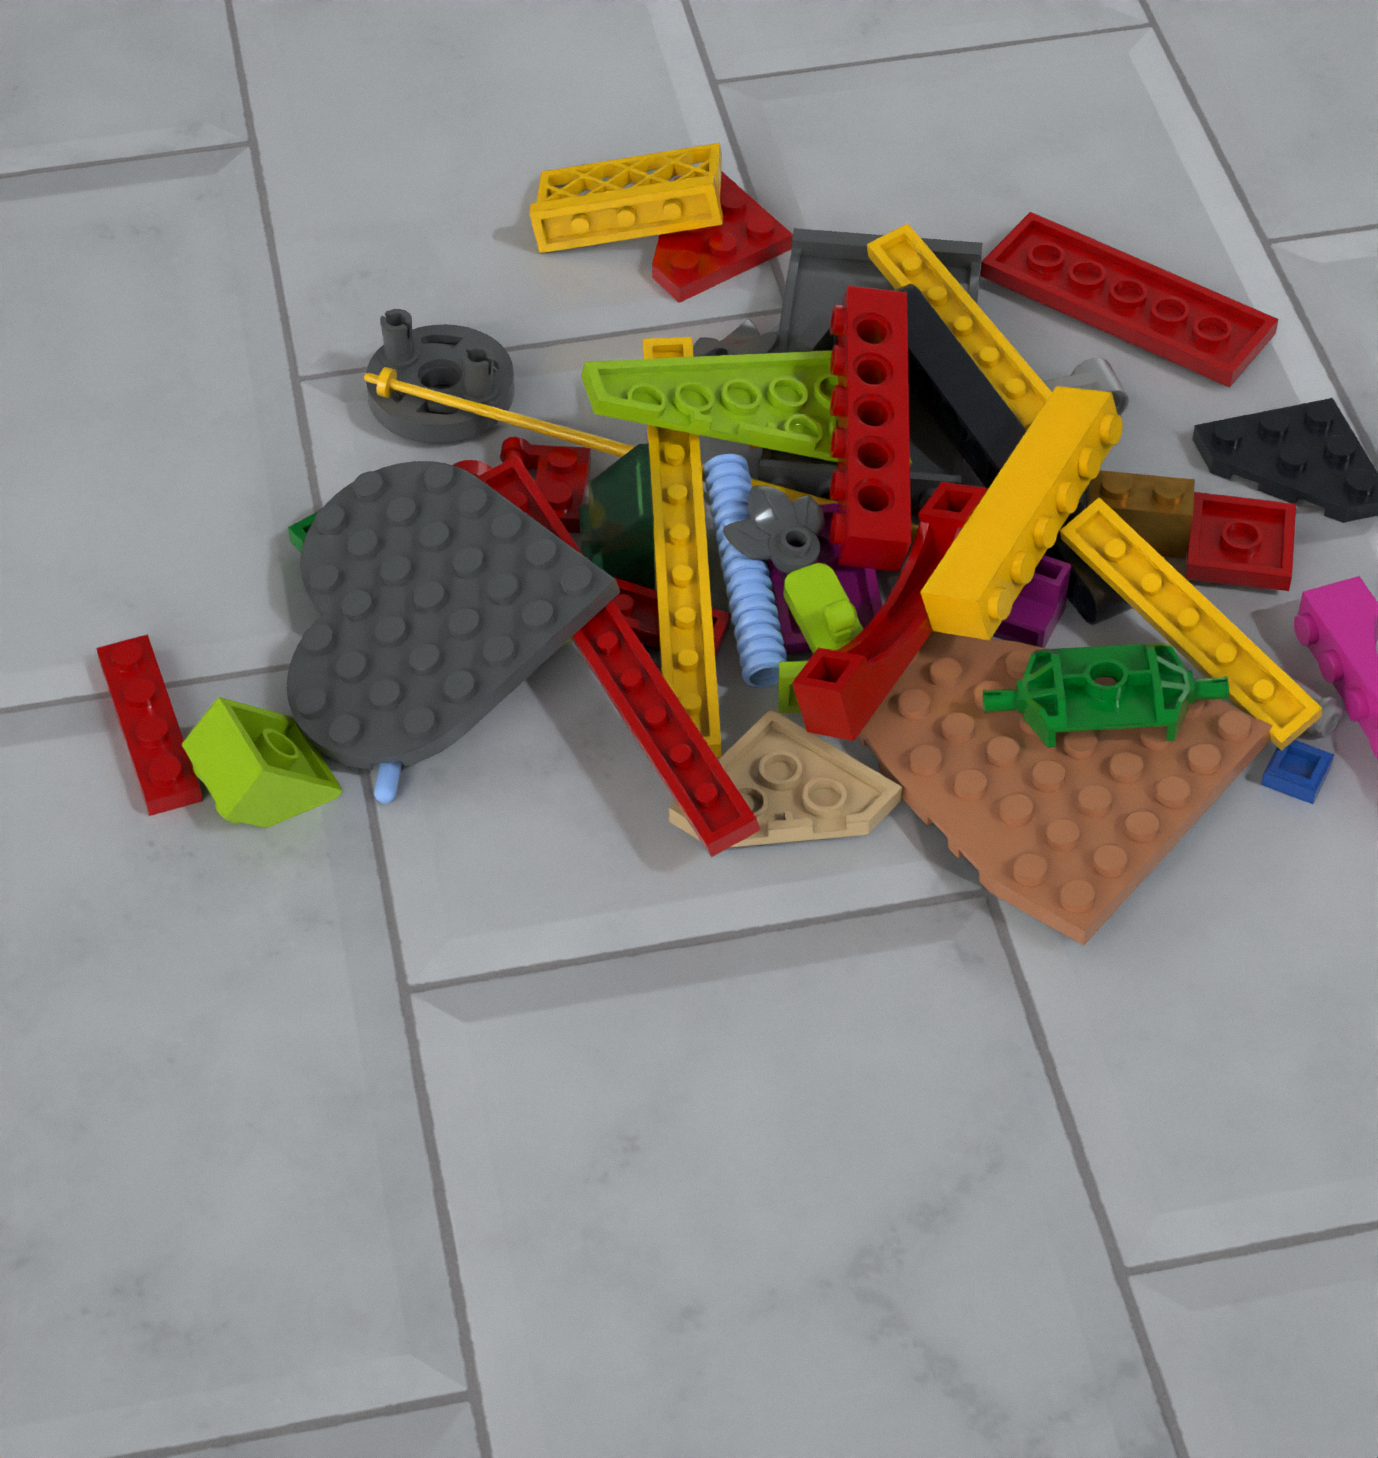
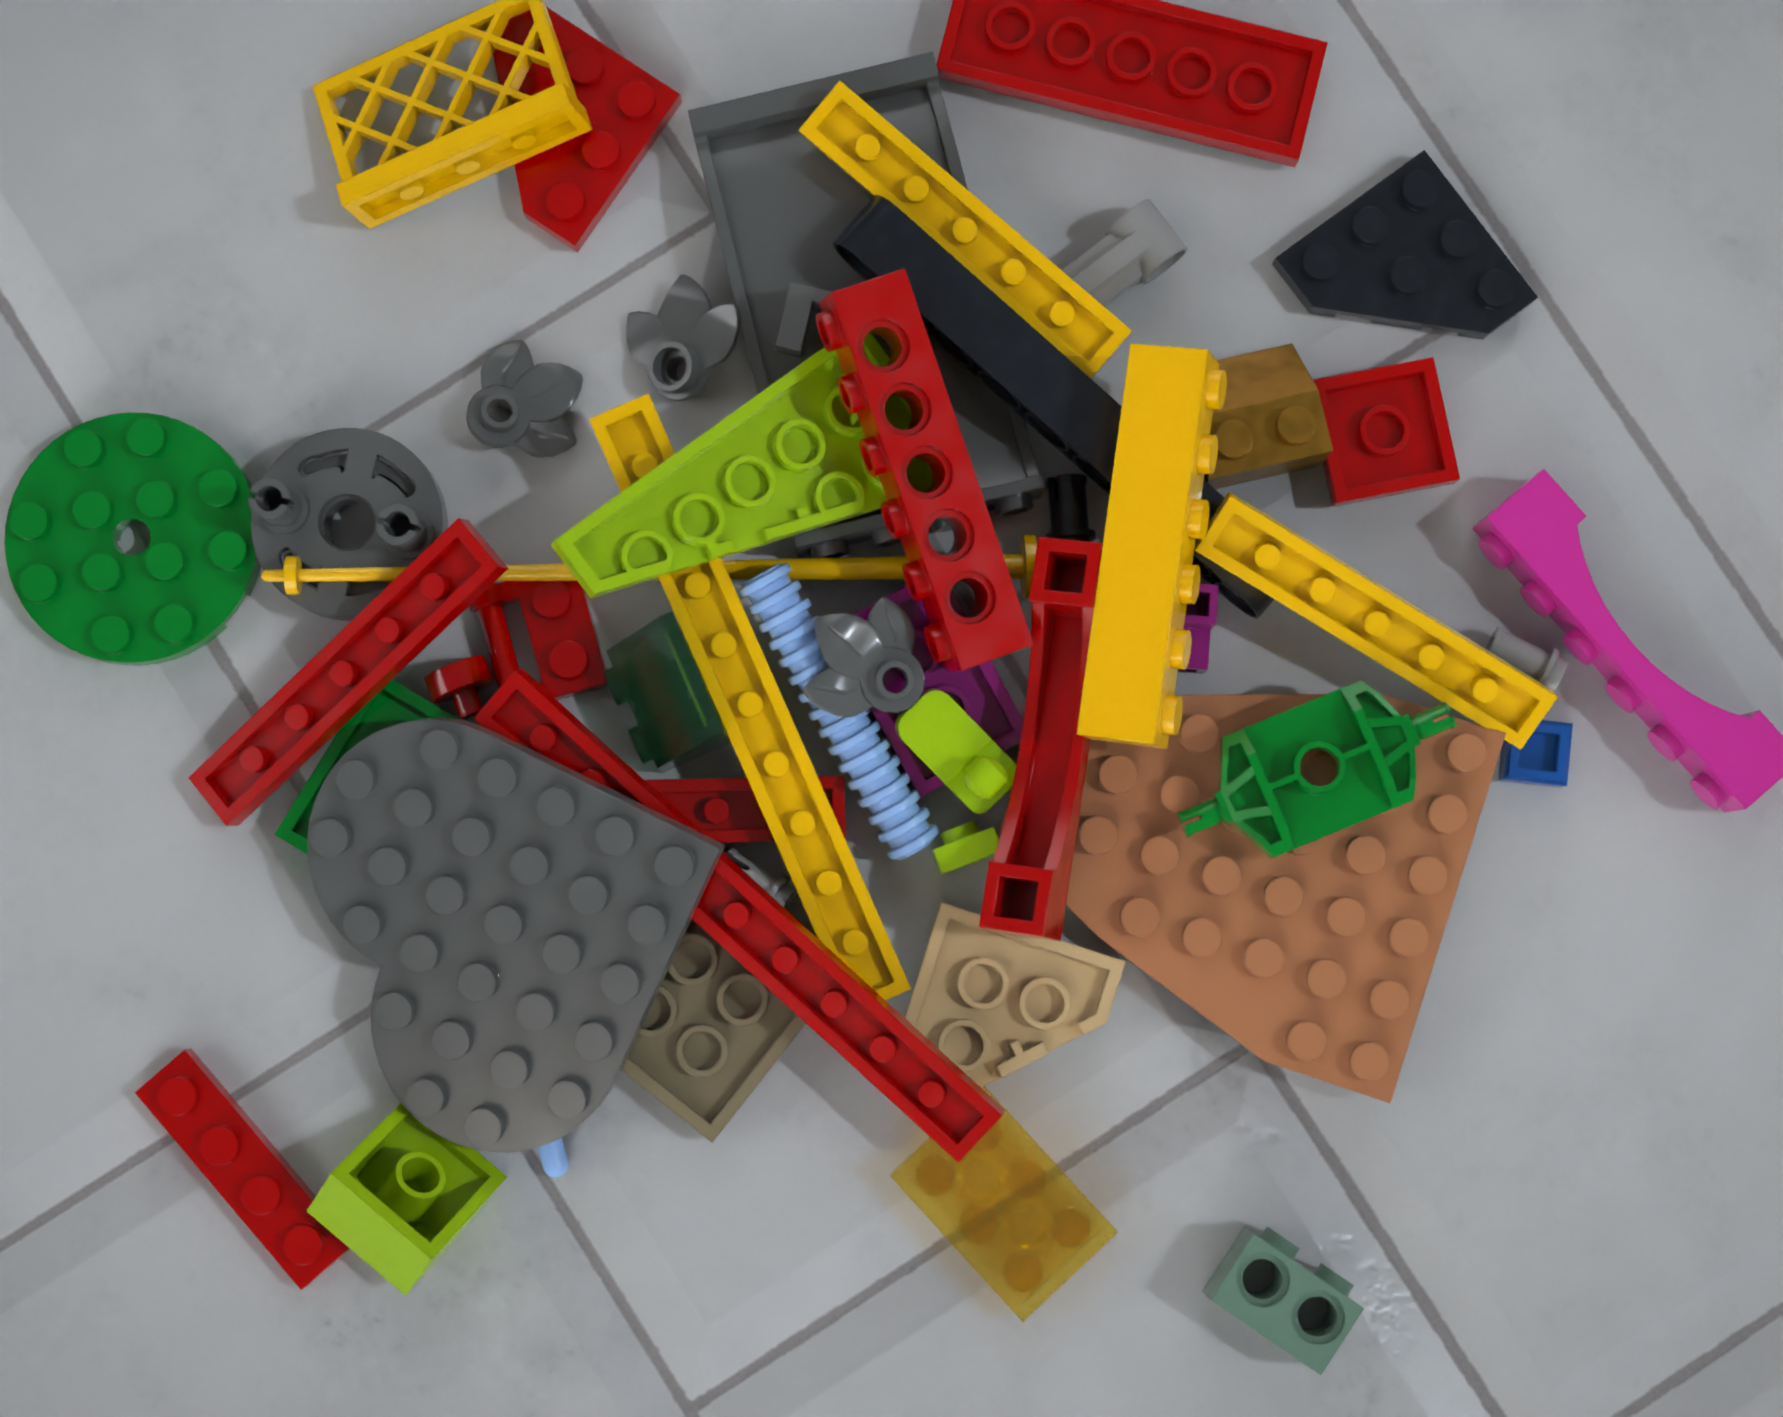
camera: 25 degrees left, 35 degrees up
(237, 350) = (81, 500): none -> green plate
(395, 441) = (348, 672): none -> red plate
(552, 733) = (709, 1035): none -> dark tan plate
(590, 345) = (531, 395): none -> dark grey plate
(732, 920) = (1007, 1212): none -> clear yellow plate
(931, 1057) = (1276, 1308): none -> sand green brick

